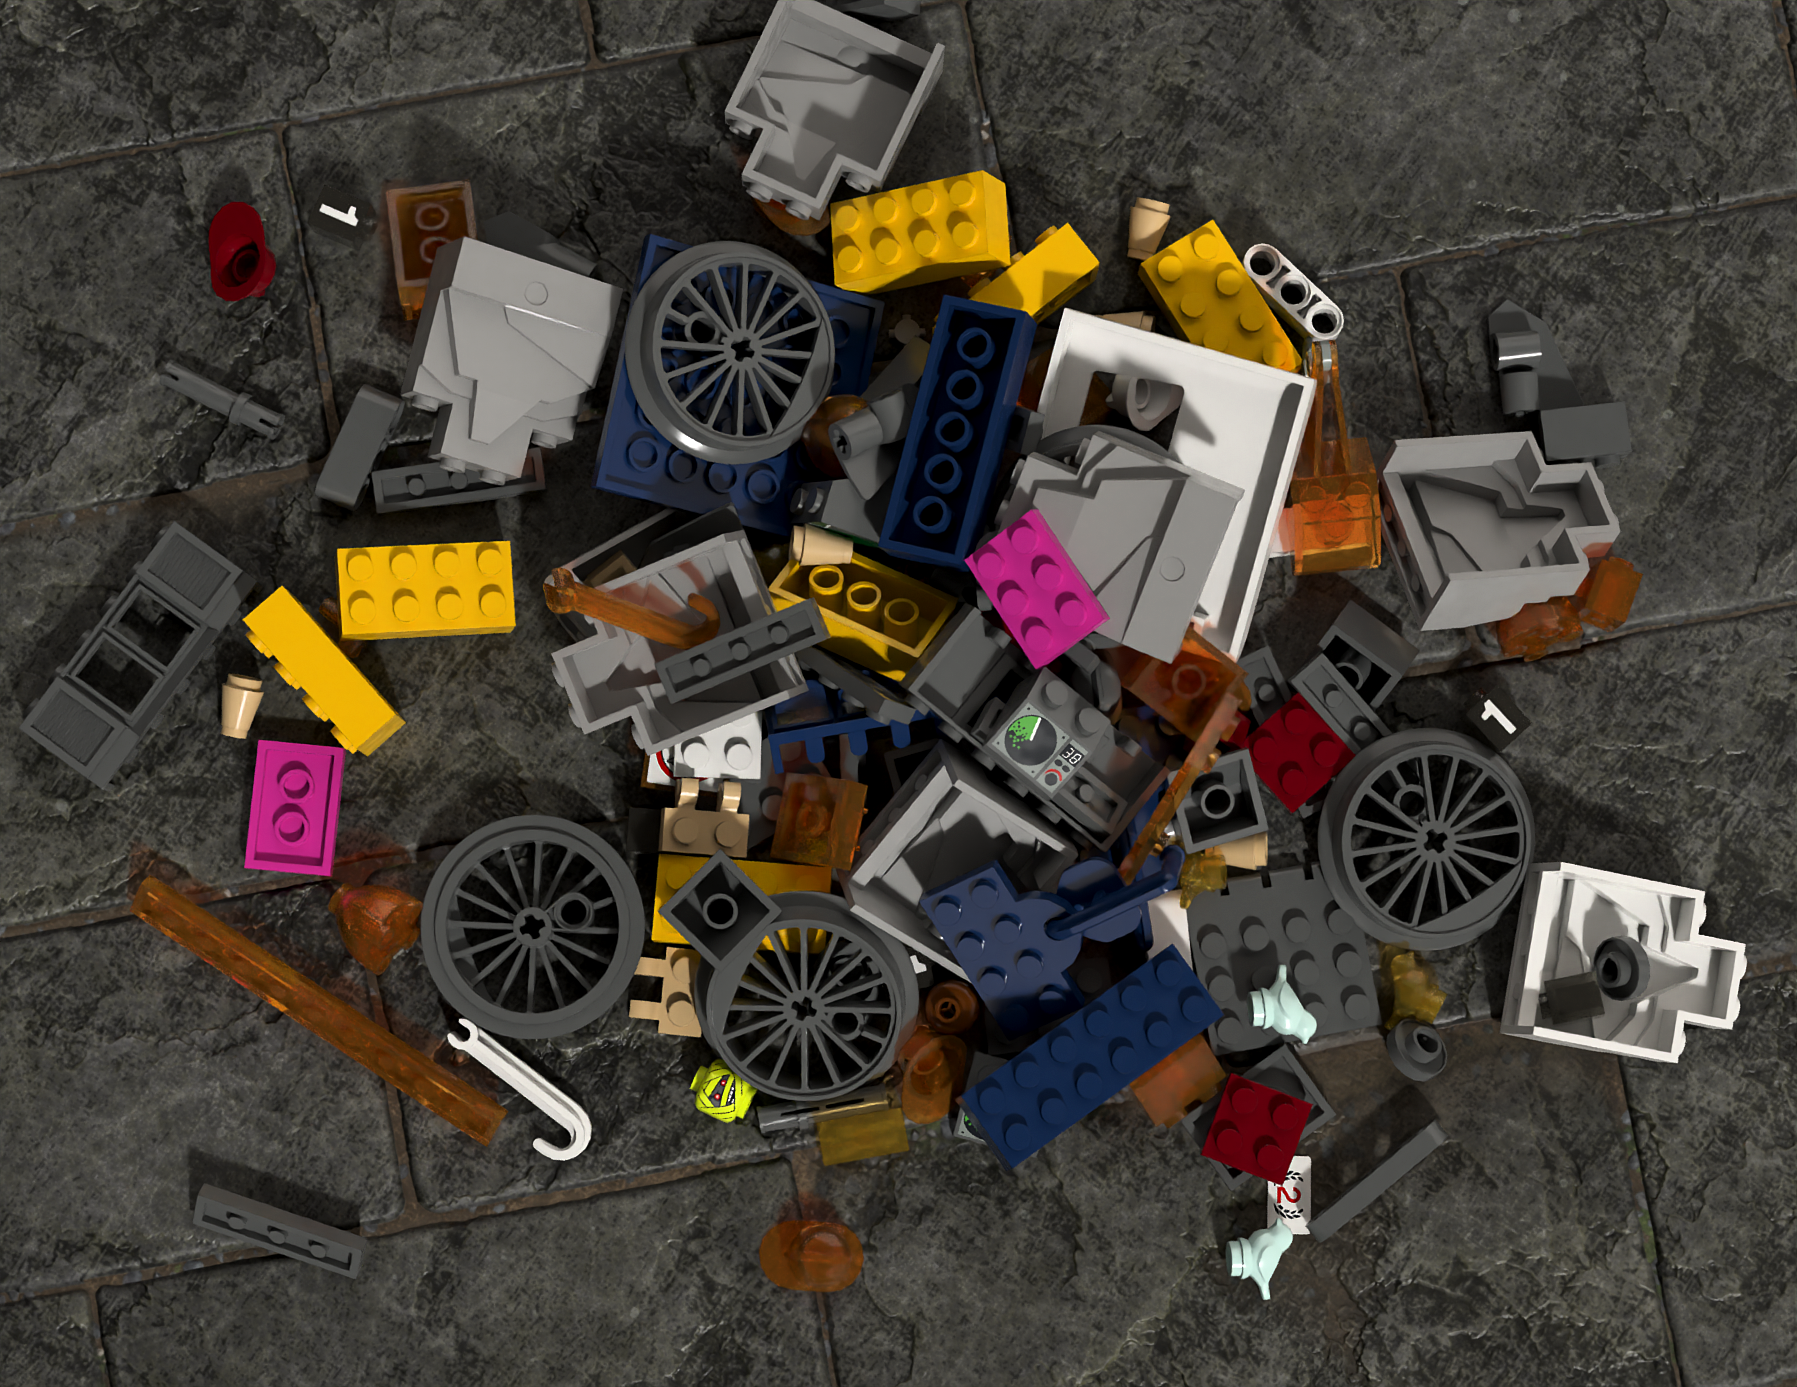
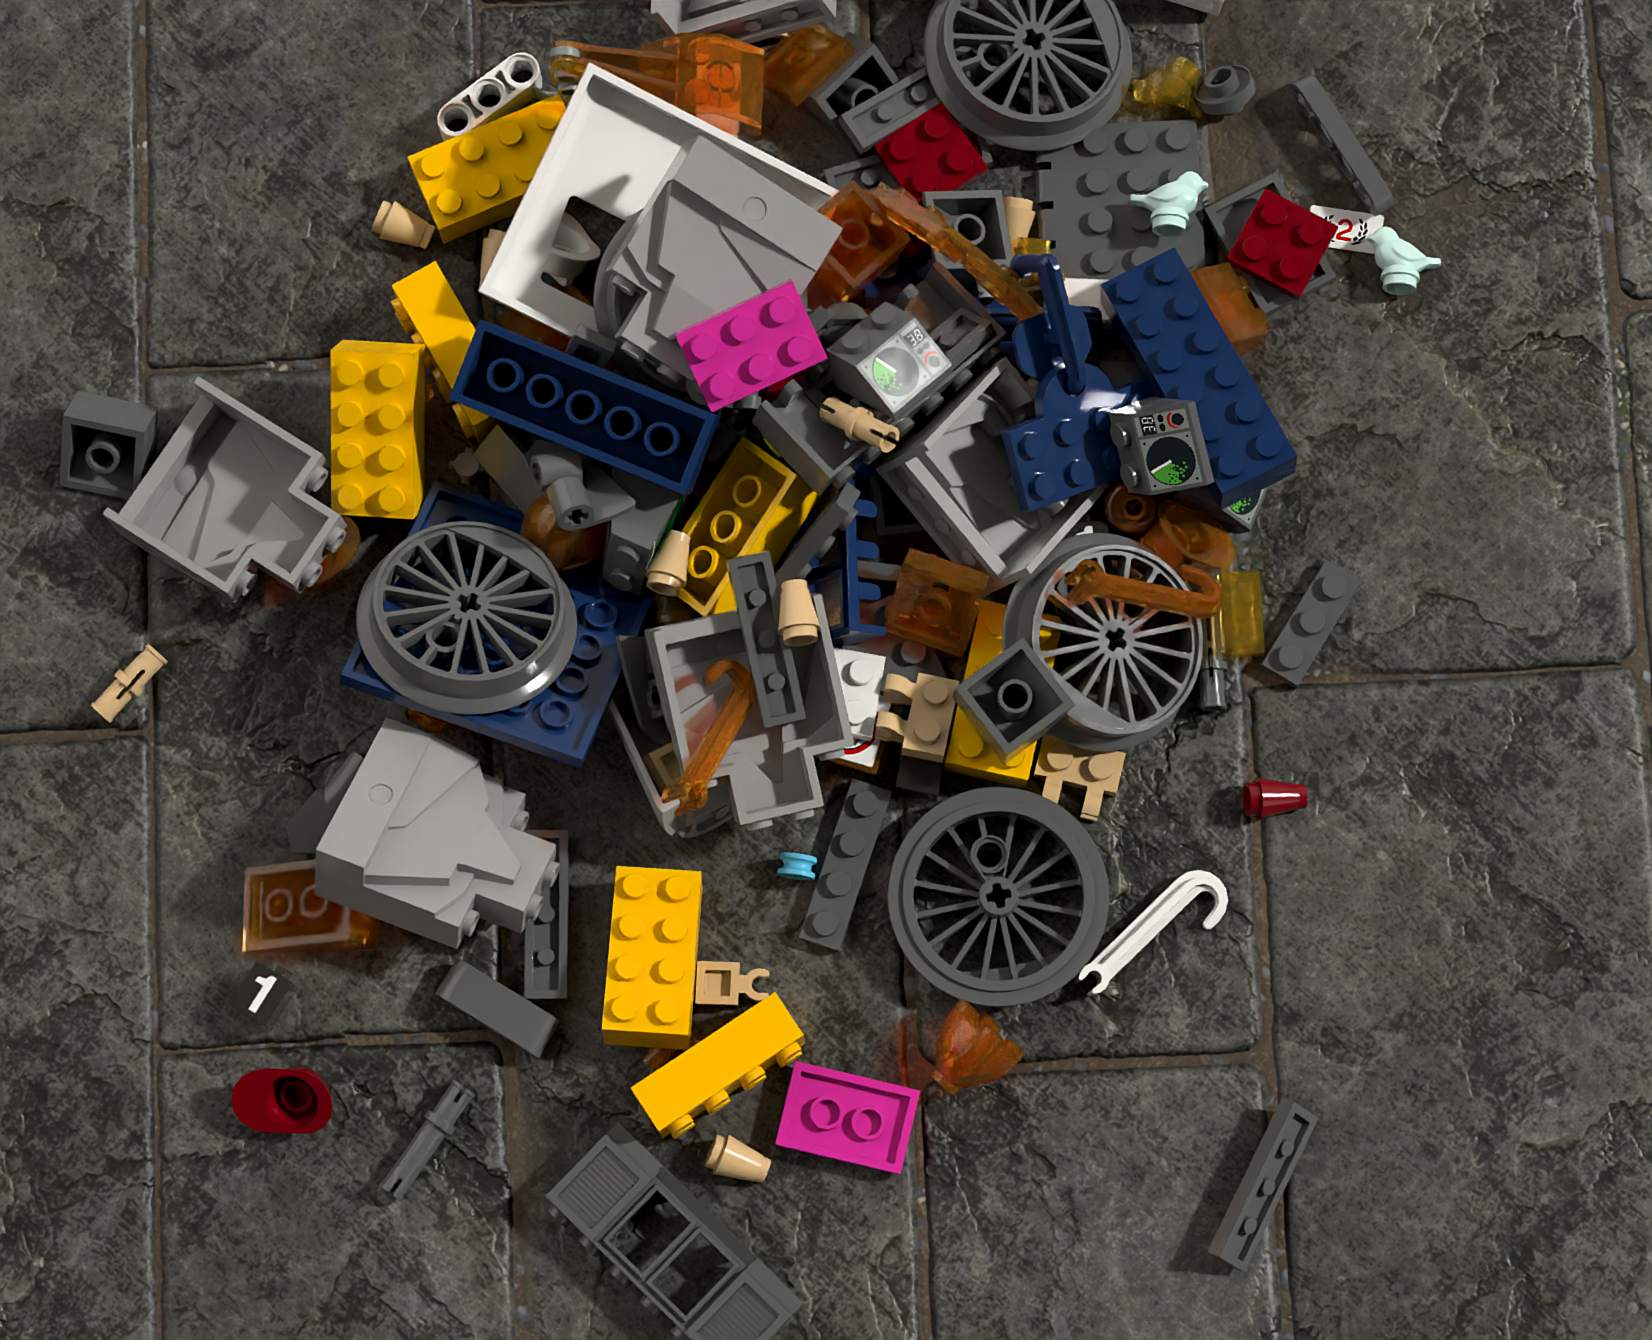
camera: 80 degrees left, 5 degrees down
(318, 1010) = (1050, 1120): clear orange plate -> none
(413, 665) = (722, 984): none -> tan plate
(540, 722) = (797, 866): none -> medium azure bush
(550, 770) = (845, 865): none -> dark grey plate
(637, 35) = (129, 683): none -> tan pin
(675, 1193) = (1270, 797): none -> dark red cone
(722, 1092) = (1181, 738): neon yellow head -> none
(766, 677) = (797, 614): none -> tan cone
(811, 1256) = (1348, 679): clear orange piece -> none
(851, 1035) = (1093, 581): none -> clear orange piece
(862, 1210) = (1311, 624): none -> dark grey plate
(972, 711) = (859, 424): none -> tan pin
(1006, 1025) = (1160, 446): none -> slope
(1375, 608) = (804, 62): none -> clear orange tile

